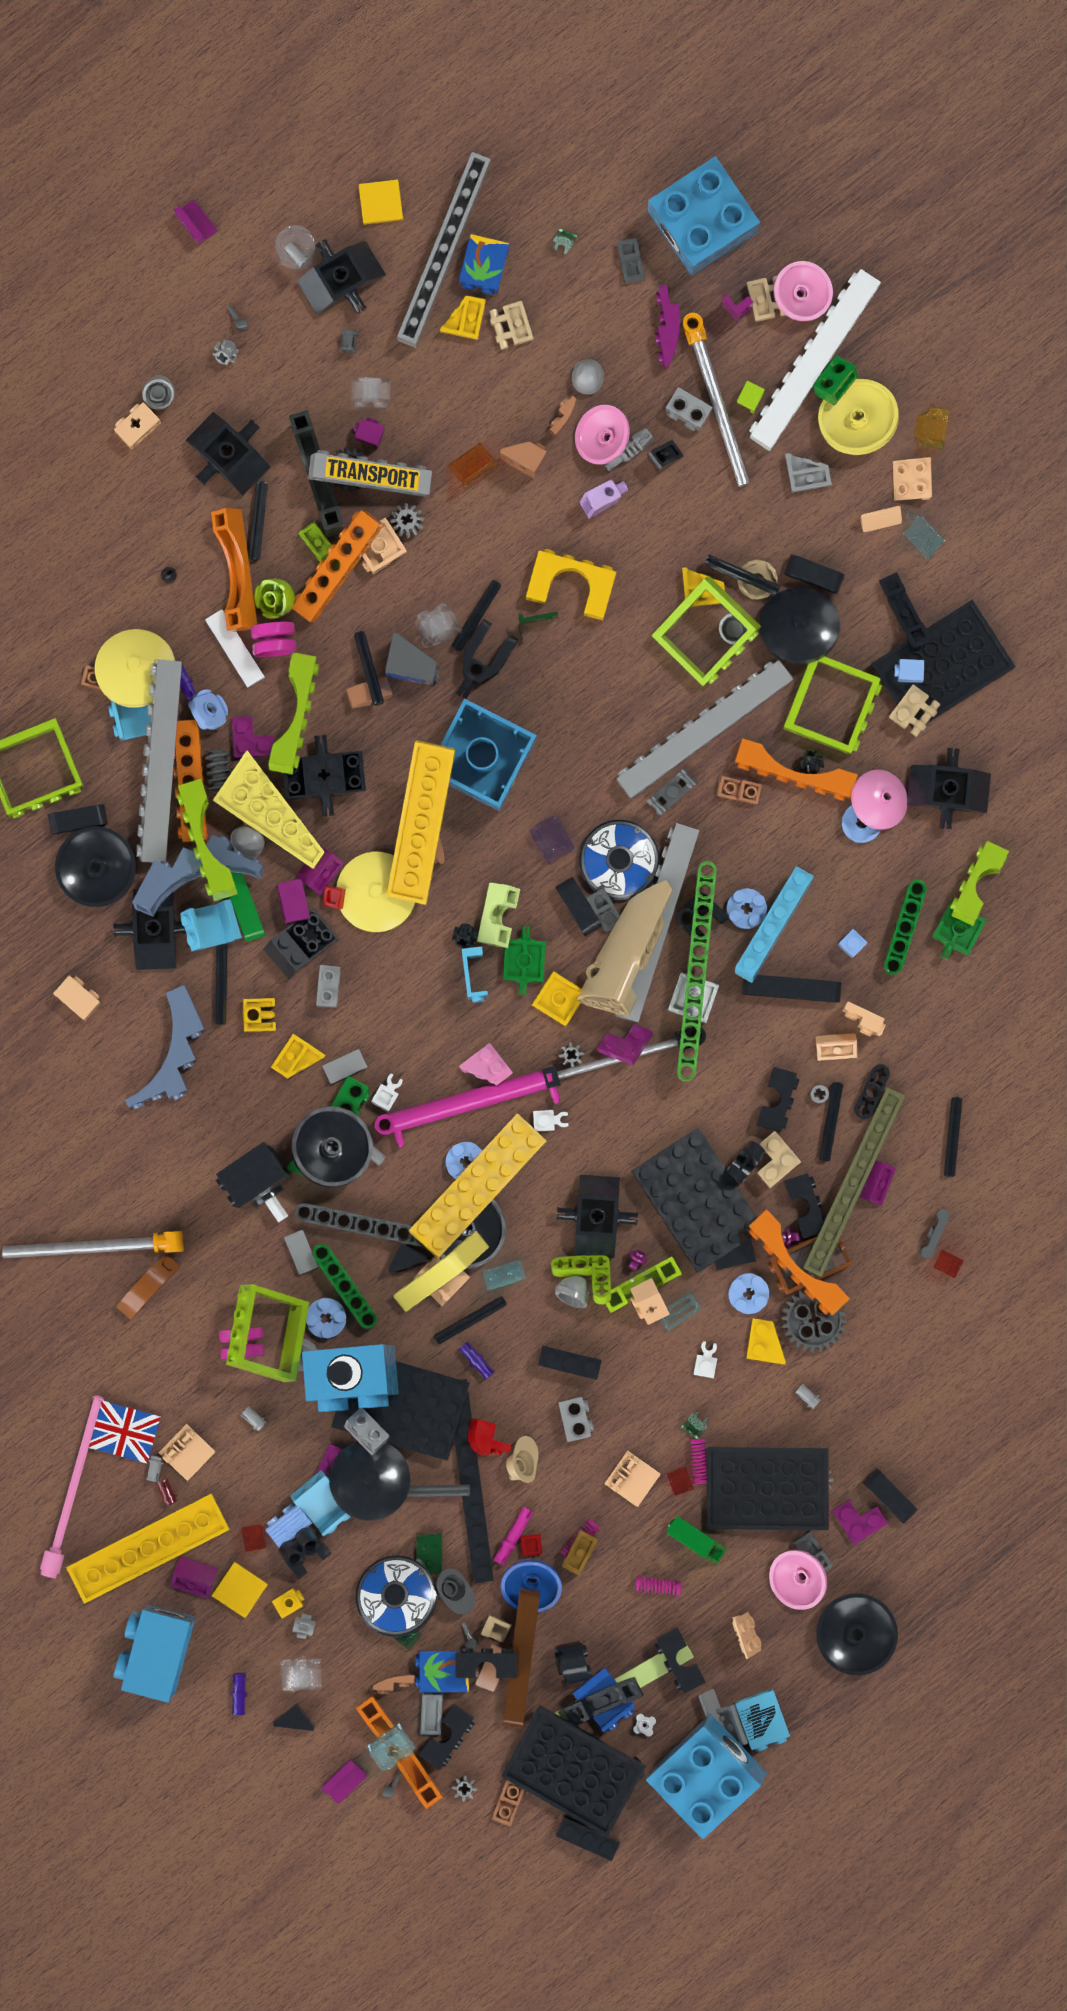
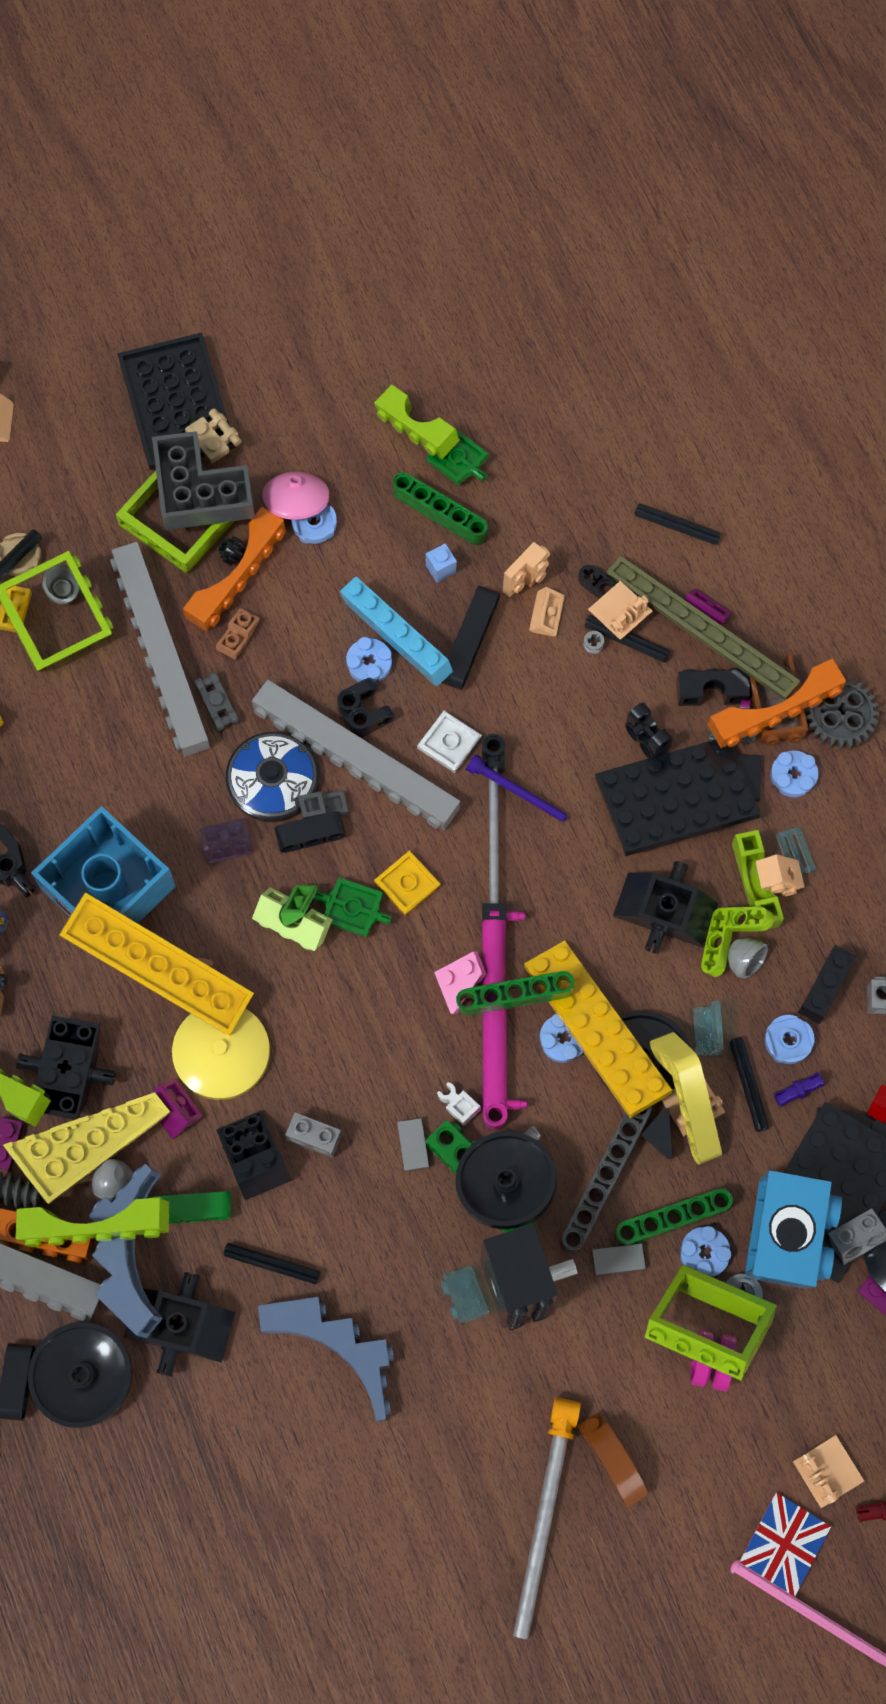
camera: 75 degrees left, 15 degrees down
(77, 997) = (231, 1446): light nougat brick -> none
(154, 1468) = (839, 1518): light grey pin -> none
(210, 925) = (197, 1252): medium azure panel -> none
(239, 1140) = (465, 1295): none -> clear light blue bracket
(253, 1418) = (806, 1375): light grey pin -> none
(256, 1004) = (310, 1227): yellow brick -> none
(292, 901) = (200, 1149): magenta panel -> none
(296, 1057) = (385, 1198): yellow wing -> none
(334, 897) = (211, 1099): red tile -> none
(464, 935) = (303, 964): black gear -> none
(470, 953) = (349, 971): medium azure panel -> none
(483, 1102) = (505, 1001): none -> green beam
(511, 916) = (298, 903): none -> bright green slope
(527, 1345) = (795, 1028): none -> light blue plate
(546, 1120) = (541, 935): white plate -> none
(577, 1054) = (476, 879): light grey gear -> none
(626, 952) = (379, 790): tan panel -> none
(626, 1049) = (486, 823): magenta plate -> none
(637, 1258) = (725, 879): magenta plate -> none
(672, 1027) = (477, 766): none -> dark purple piece
(691, 980) = (431, 728): bright green beam -> none
(706, 1364) = (862, 840): white plate -> none
(764, 1343) = (853, 772): yellow wing -> none
(781, 1157) = (659, 698): tan brick -> none
(784, 1083) = (573, 672): black arch -> none
(799, 625) = (84, 520): black dish -> none
(814, 574) = (33, 496): black beam -> none
(844, 711) = (193, 495): none -> dark grey brick
(852, 1109) = (620, 610): none -> light nougat hinge
(904, 611) = (106, 422): black slope -> none
(909, 670) = (170, 422): light blue brick -> none
(923, 535) = (32, 382): clear light blue piece -> none
(929, 782) = (305, 429): black slope -> none
(935, 1233) = (777, 566): dark grey plate -> none
(948, 1264) = (814, 560): clear red panel -> none

